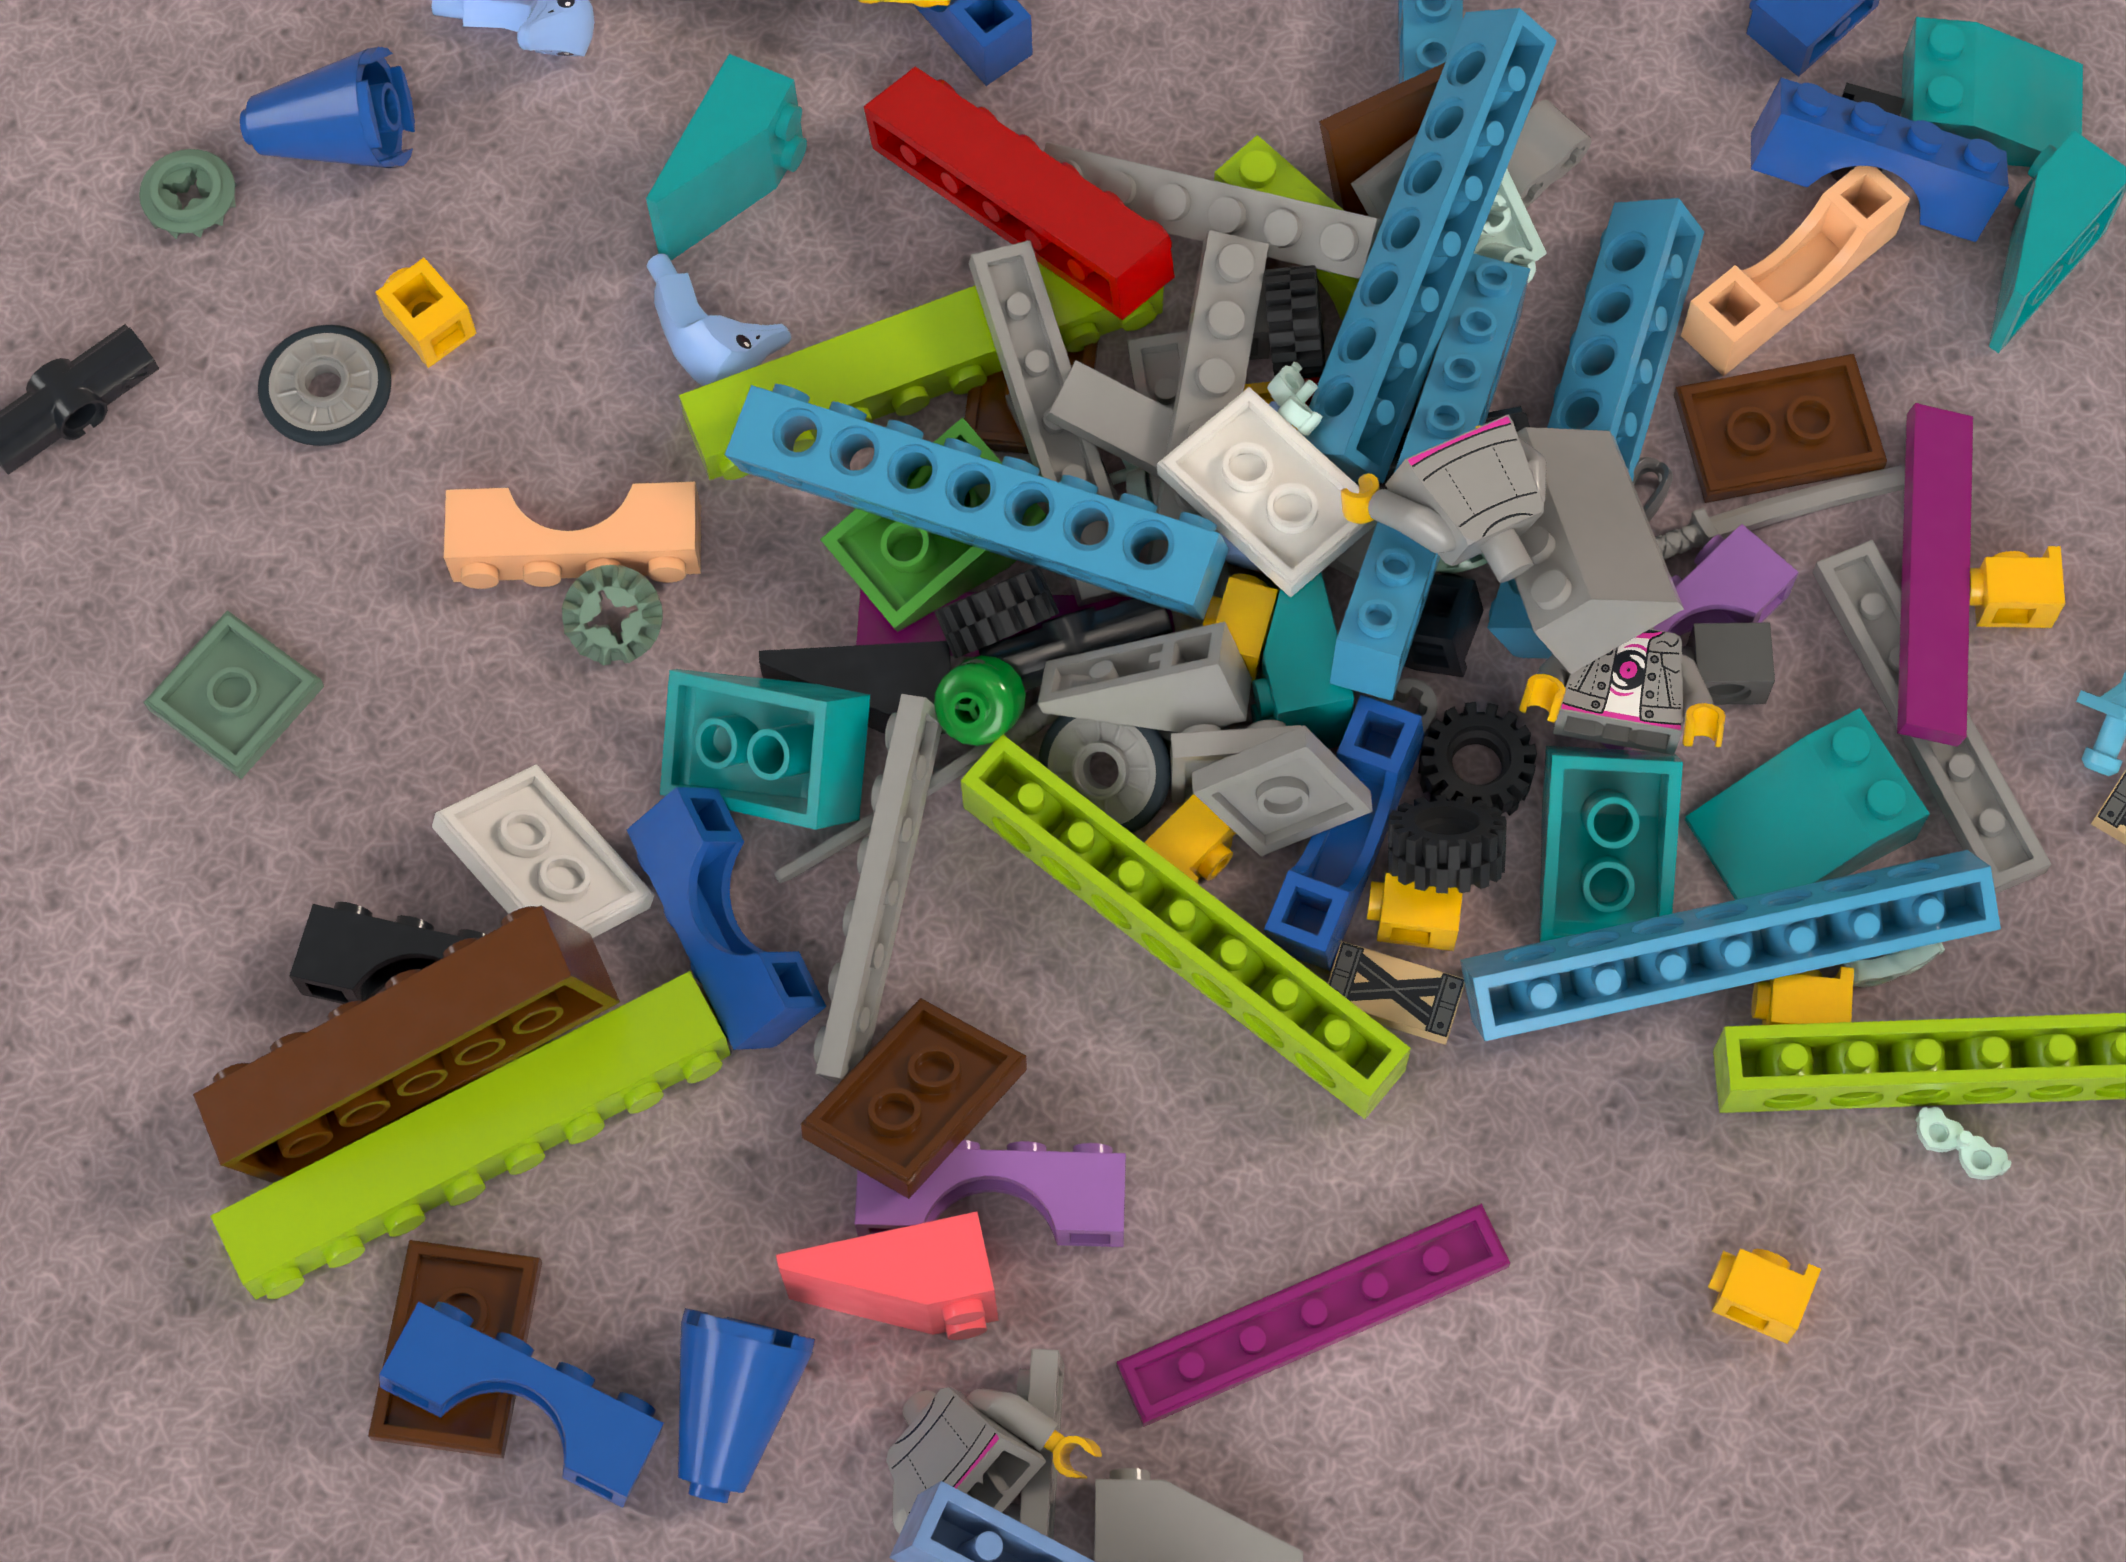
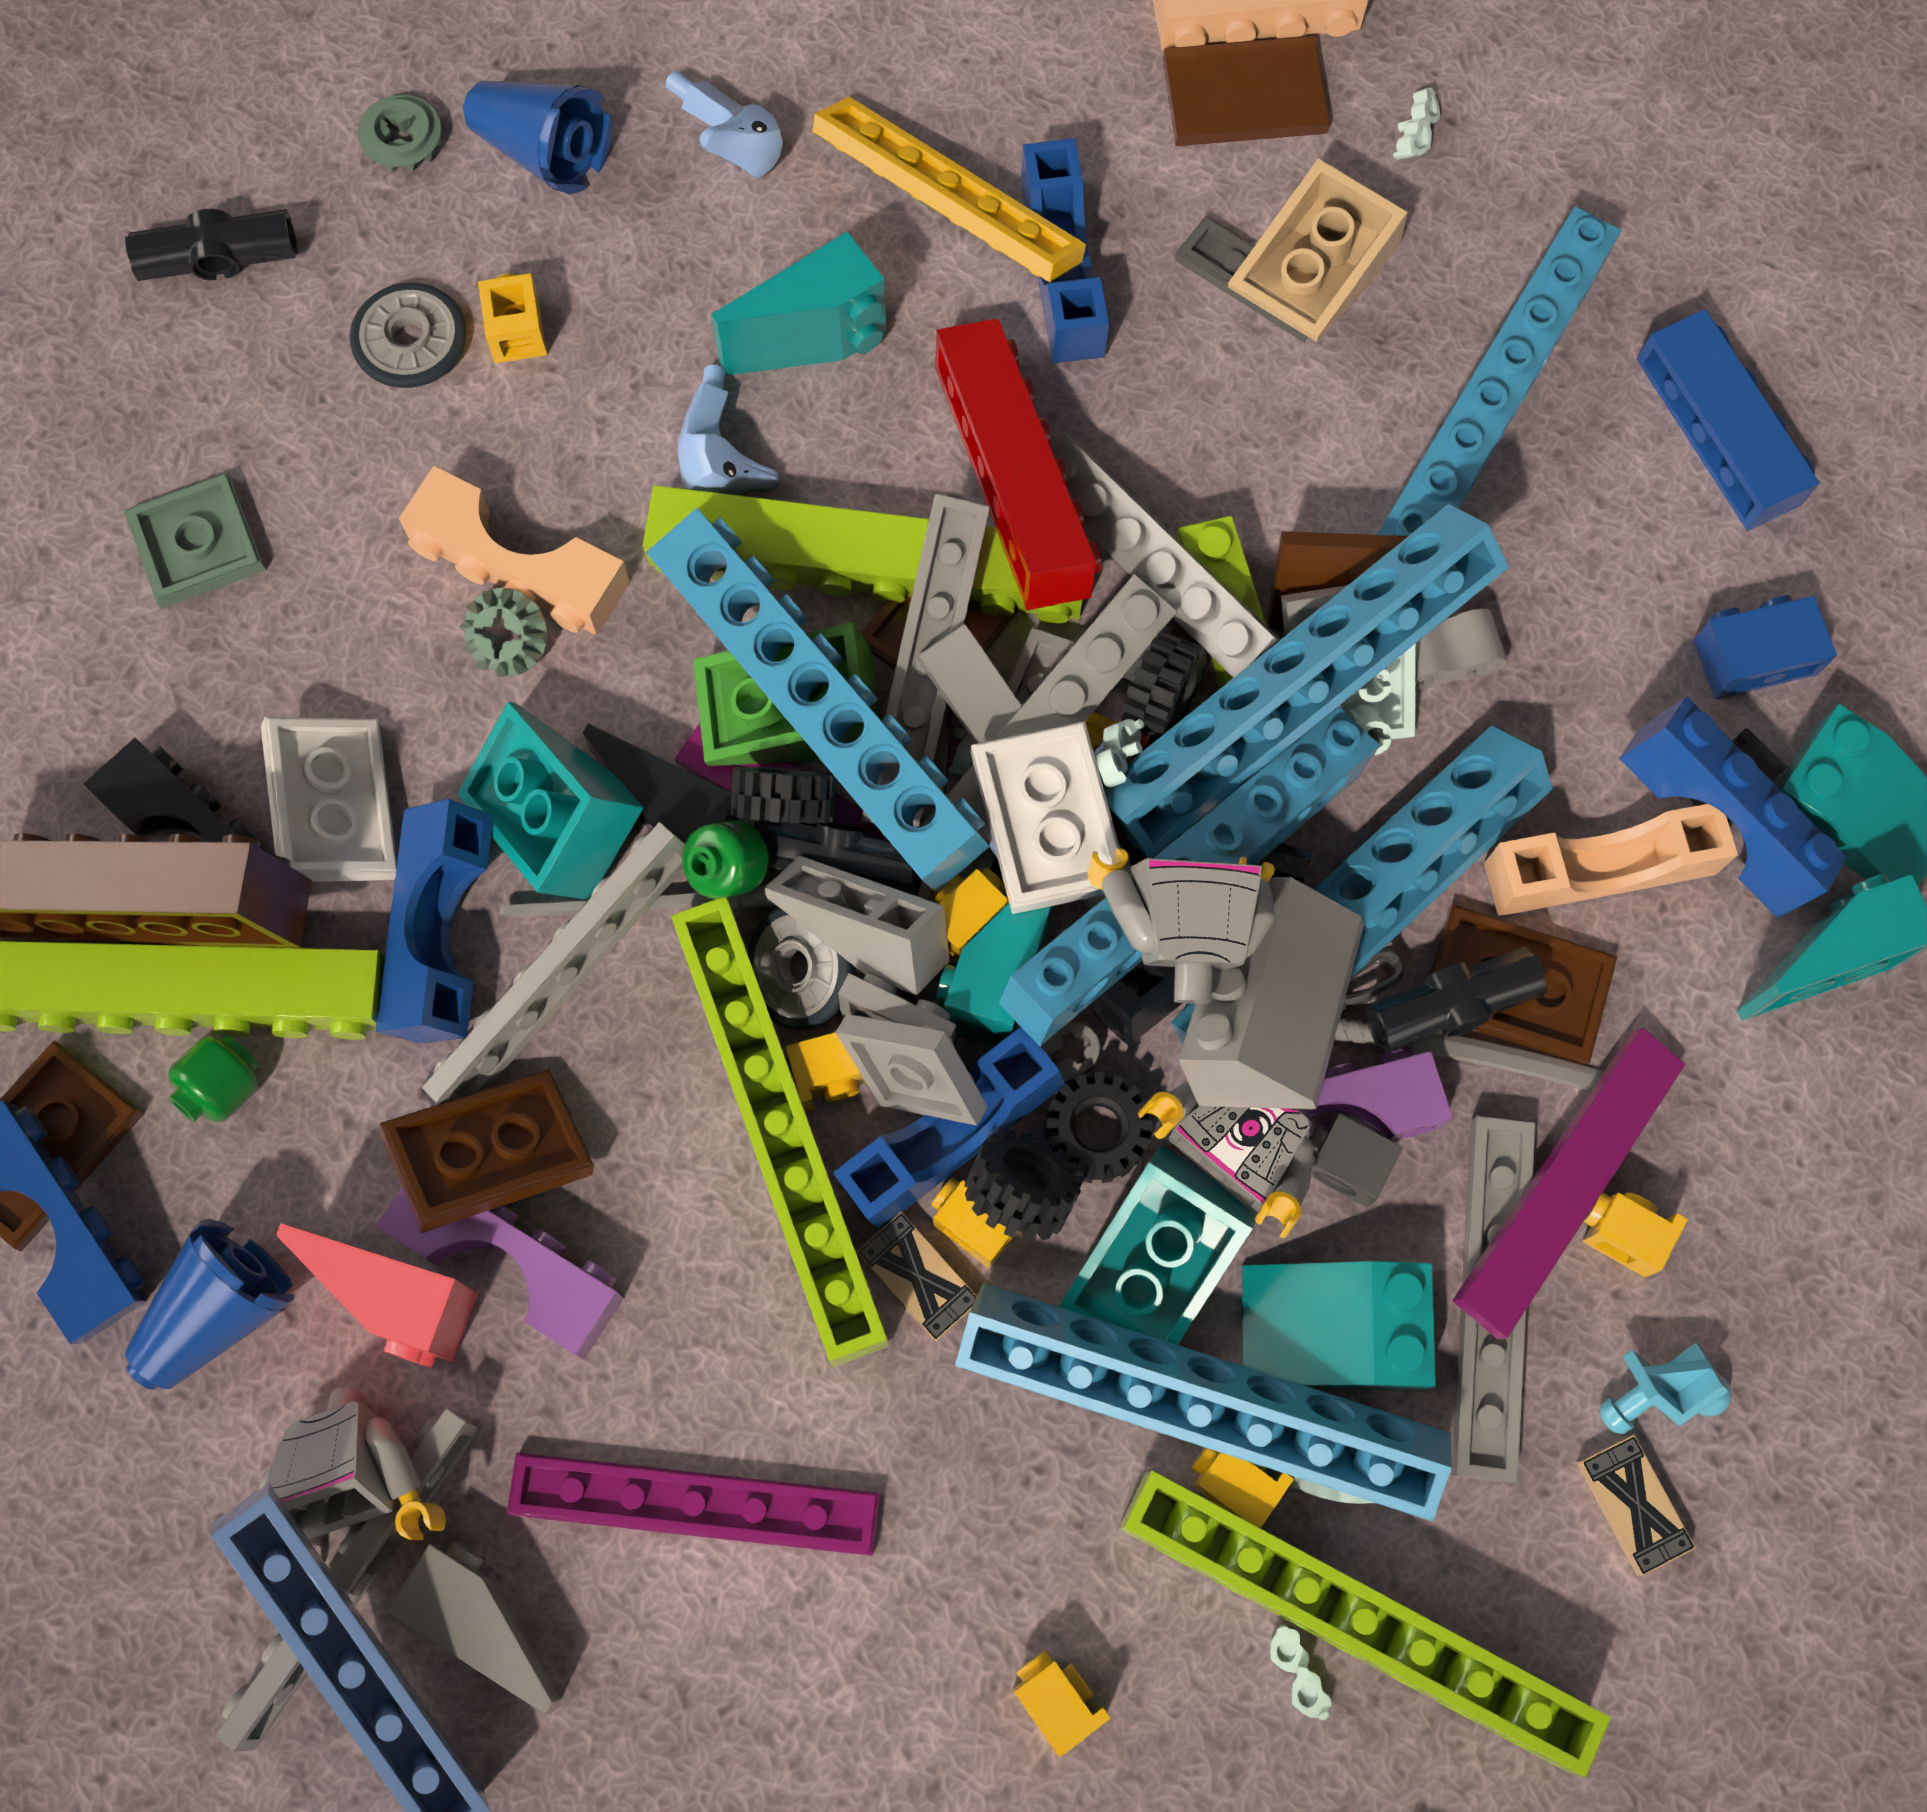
camera: 25 degrees right, 5 degrees up
(597, 1185) = (213, 1079): none -> green head
(1735, 466) = (1456, 1000): none -> black piece

